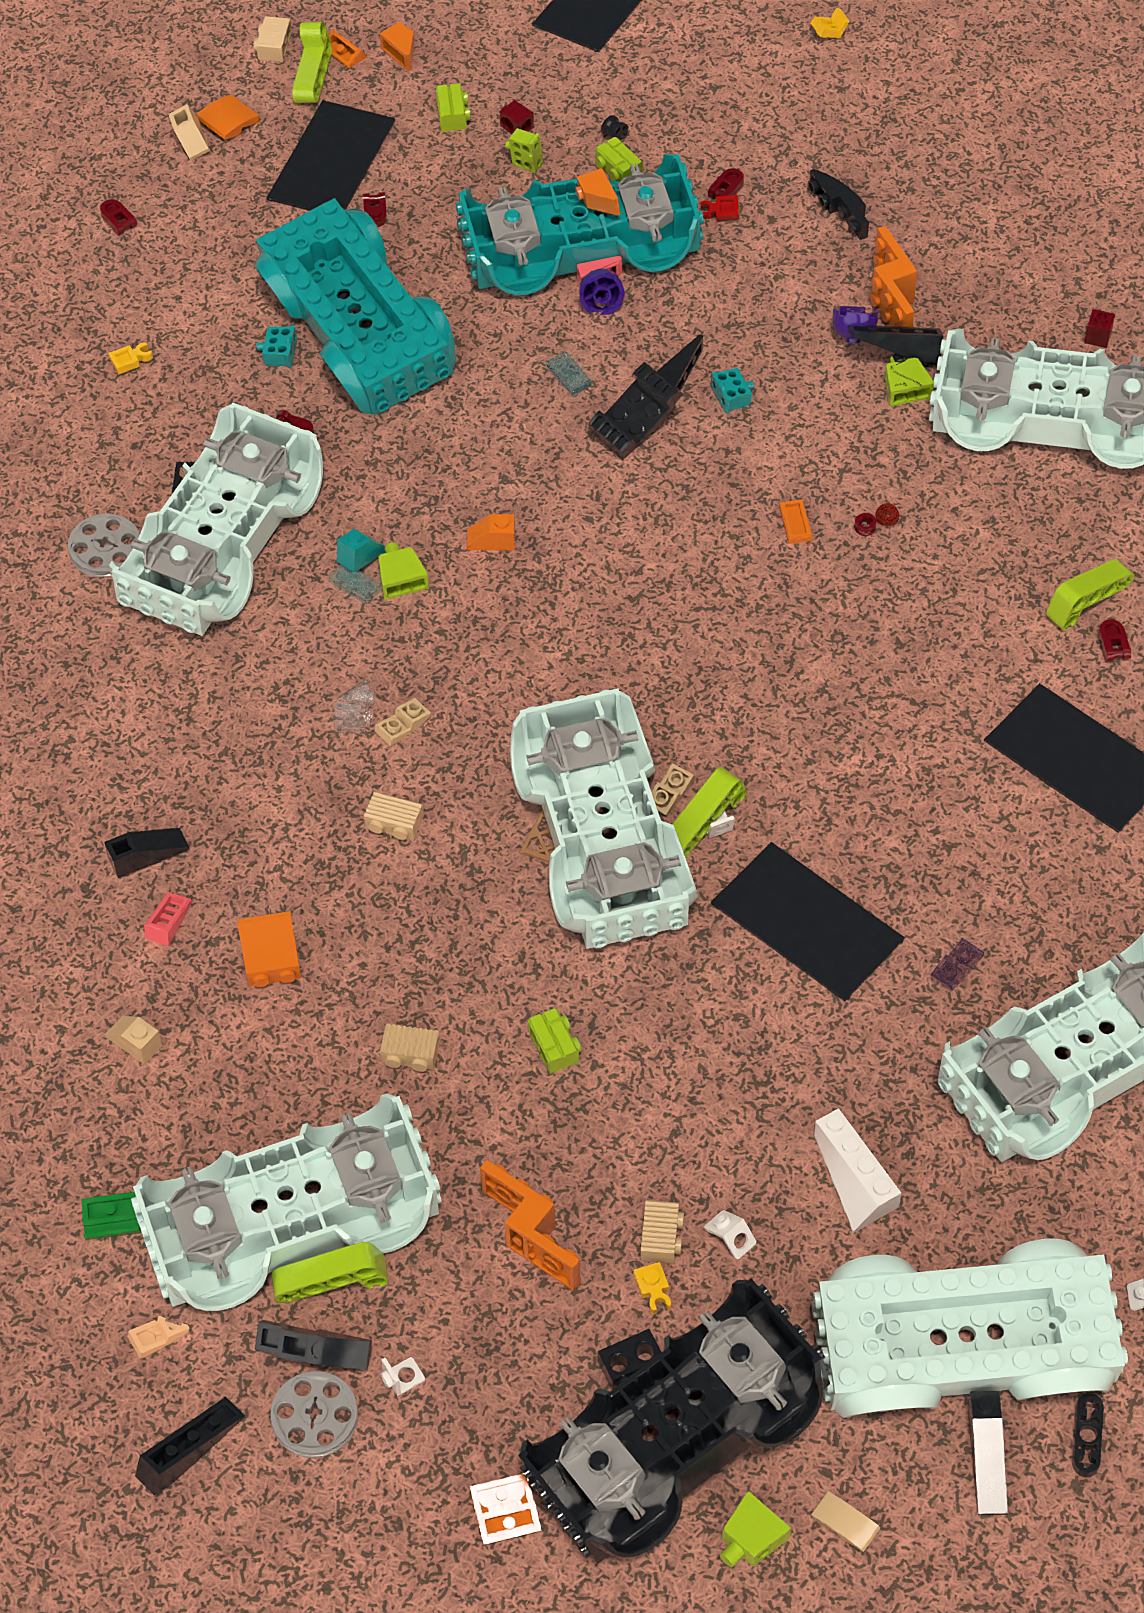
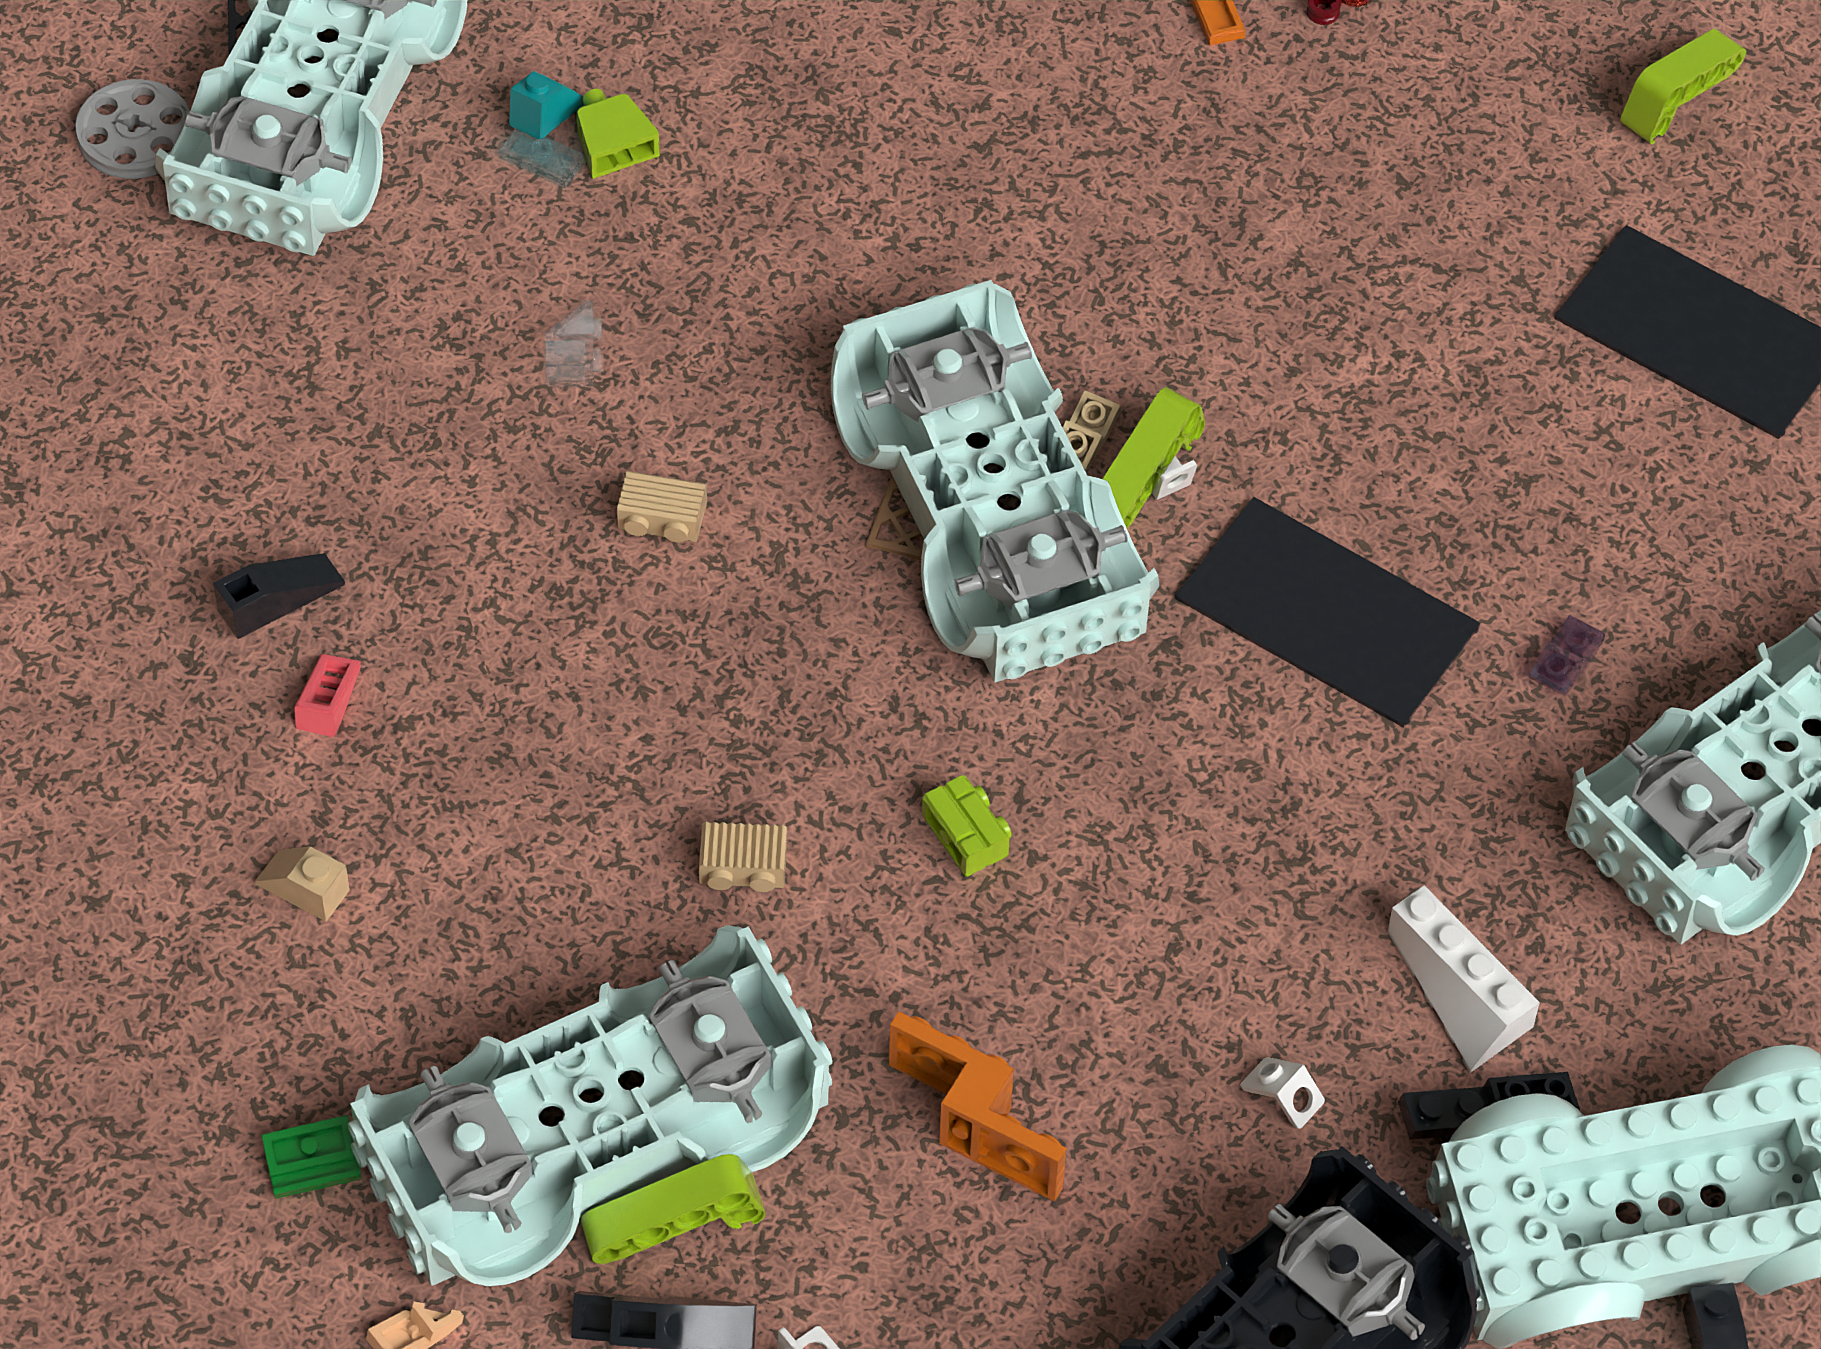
camera: 10 degrees left, 0 degrees up
(269, 949) = (502, 724): orange slope -> none
(406, 720) = (654, 362): tan slope -> none
(492, 533) = (748, 63): orange slope -> none
(626, 1354) = (1154, 1287): black brick -> none
(653, 1283) = (1177, 1177): yellow plate -> none
(660, 1231) = (1177, 1098): tan brick -> none
(826, 1258) = (1443, 1111): none -> black slope
(1112, 633) = (1725, 141): dark red plate -> none

